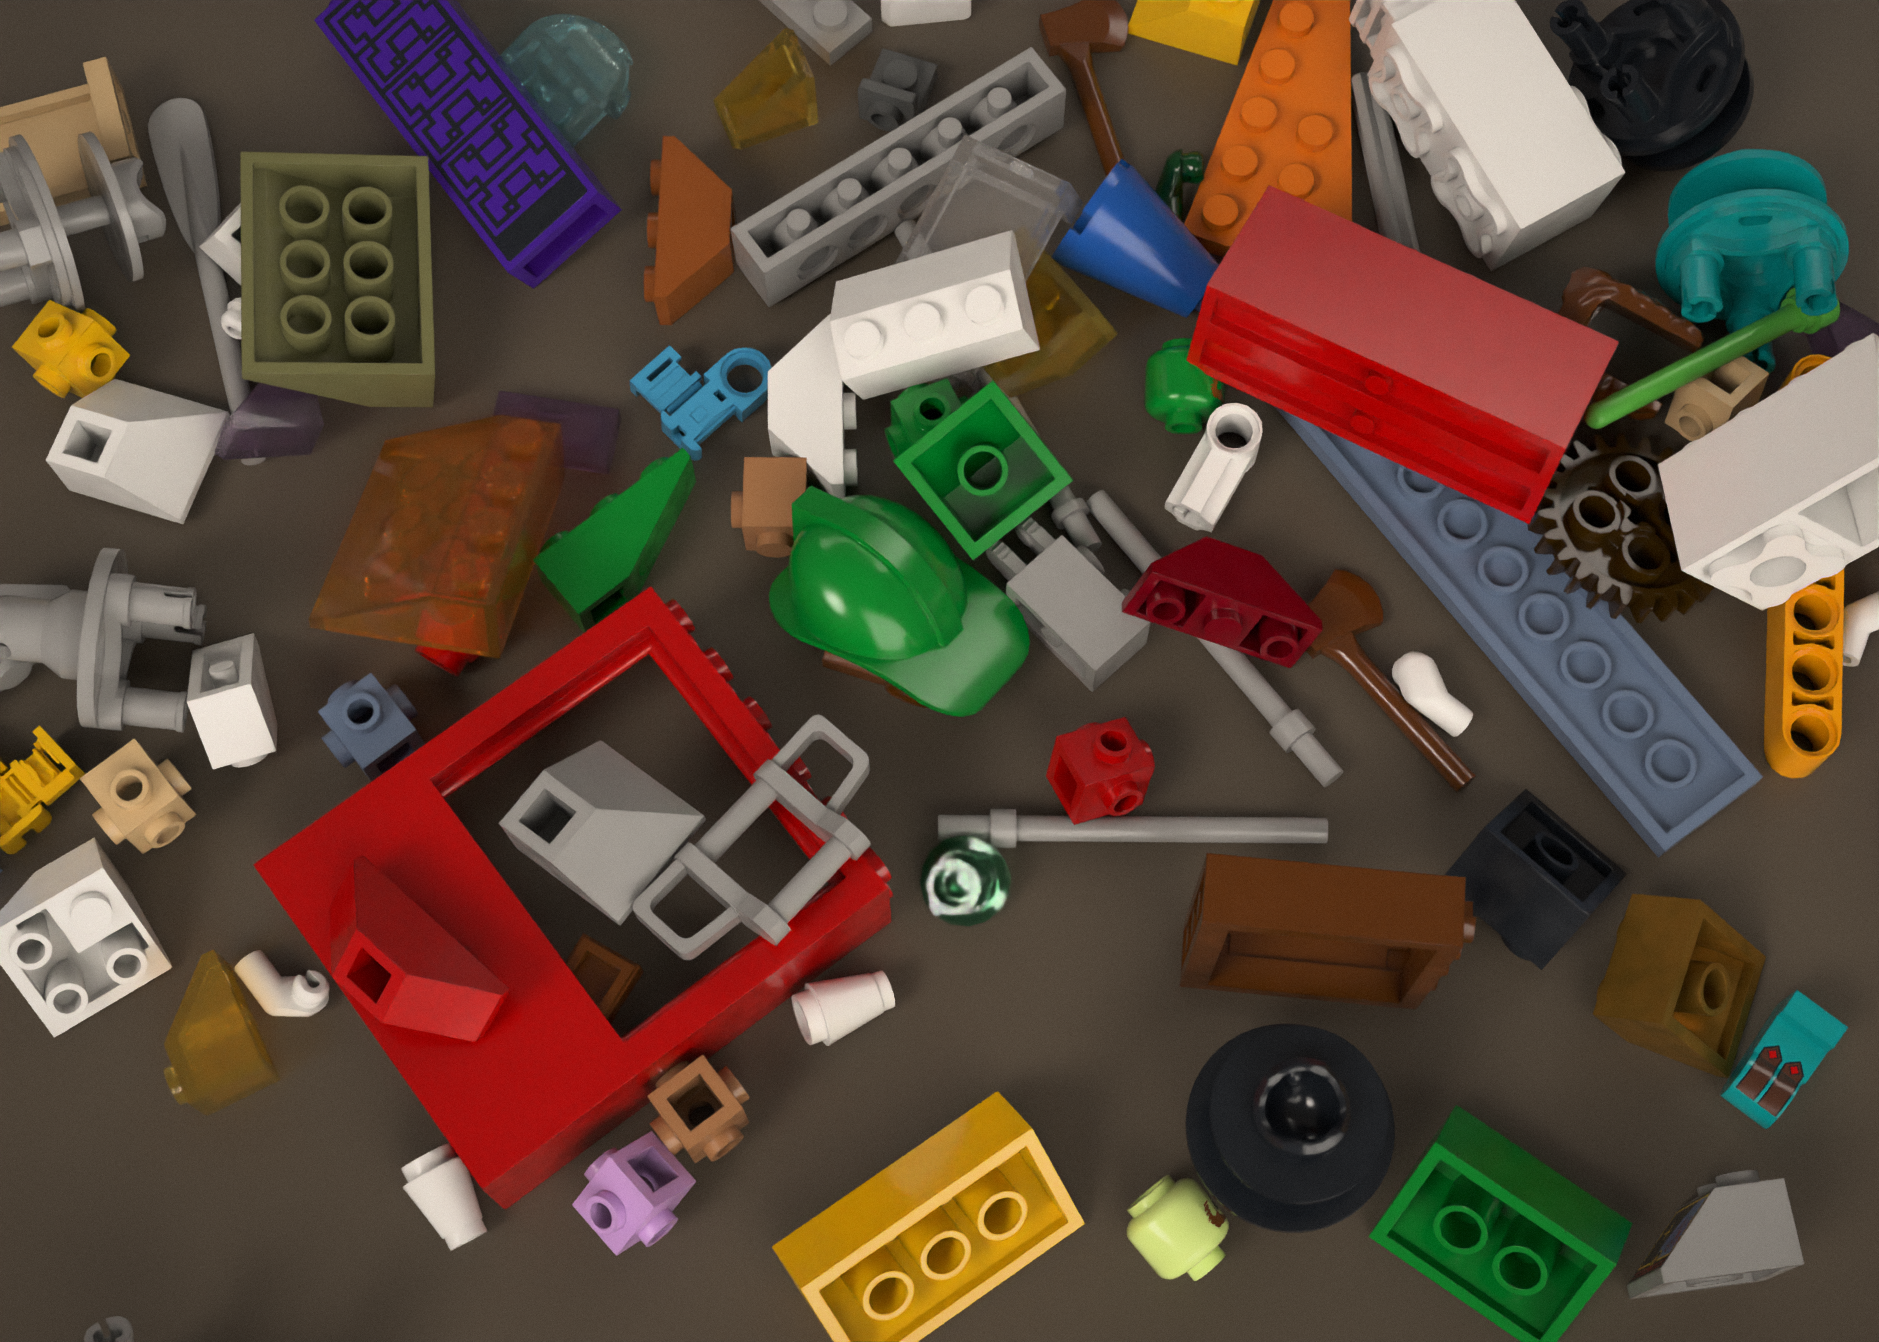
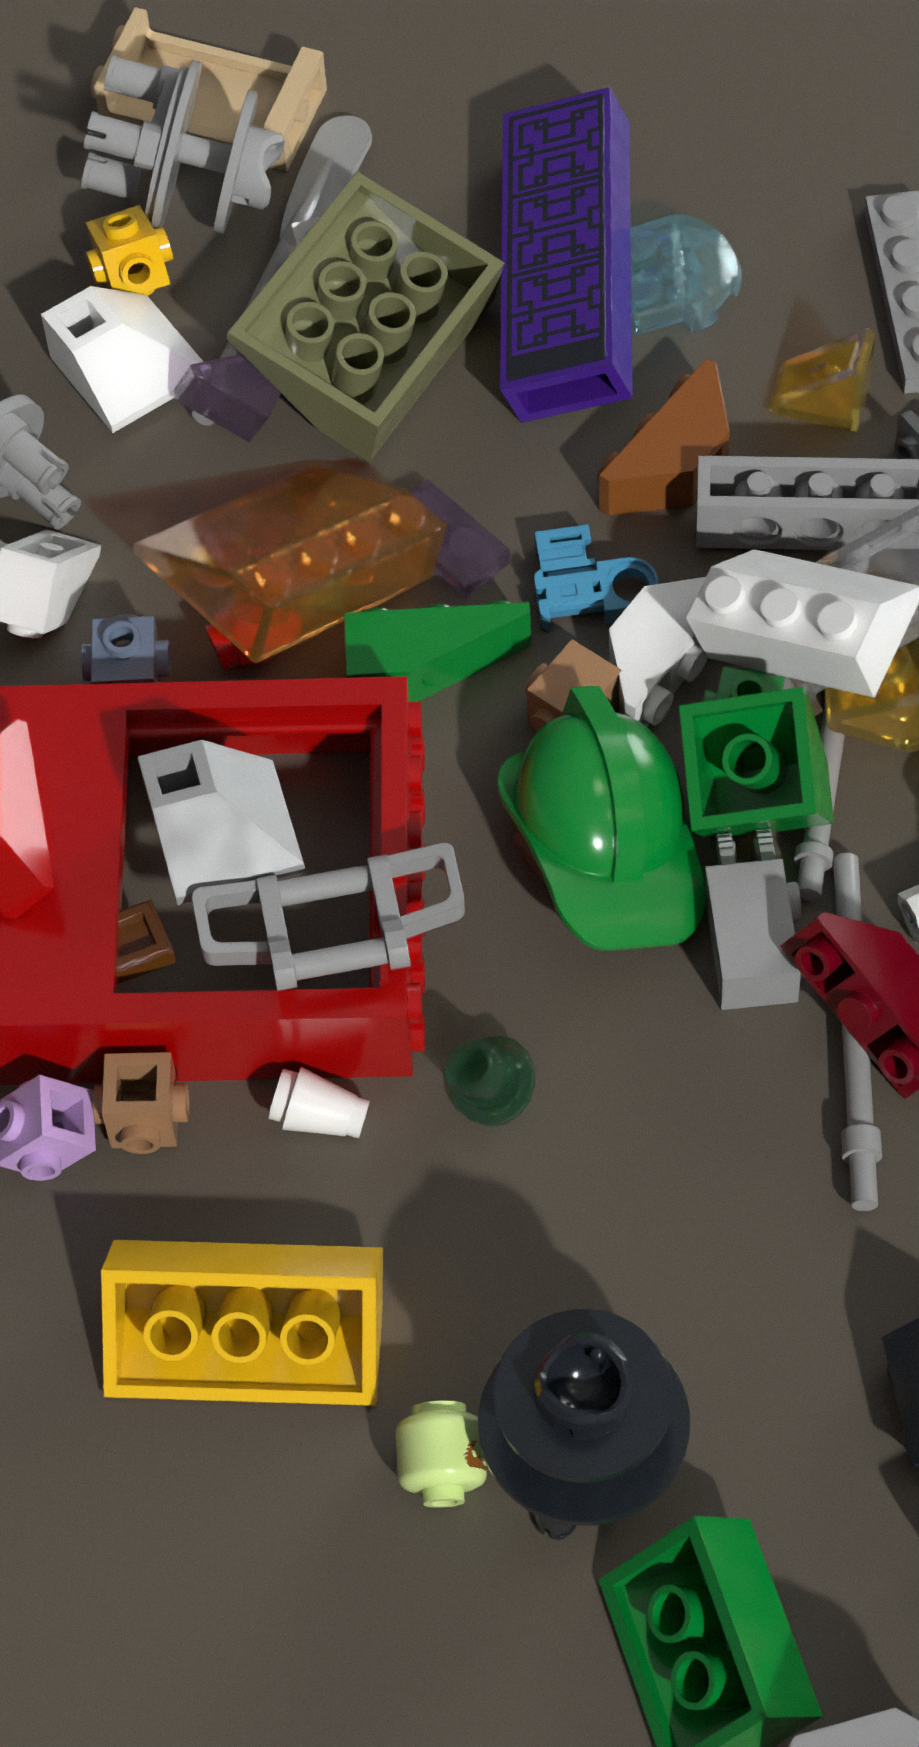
camera: 40 degrees right, 10 degrees down
(1004, 828) = (561, 1063): light grey bar -> none
(1100, 770) = (668, 1063): red brick -> none
(1323, 931) = (665, 1190): reddish brown window -> none

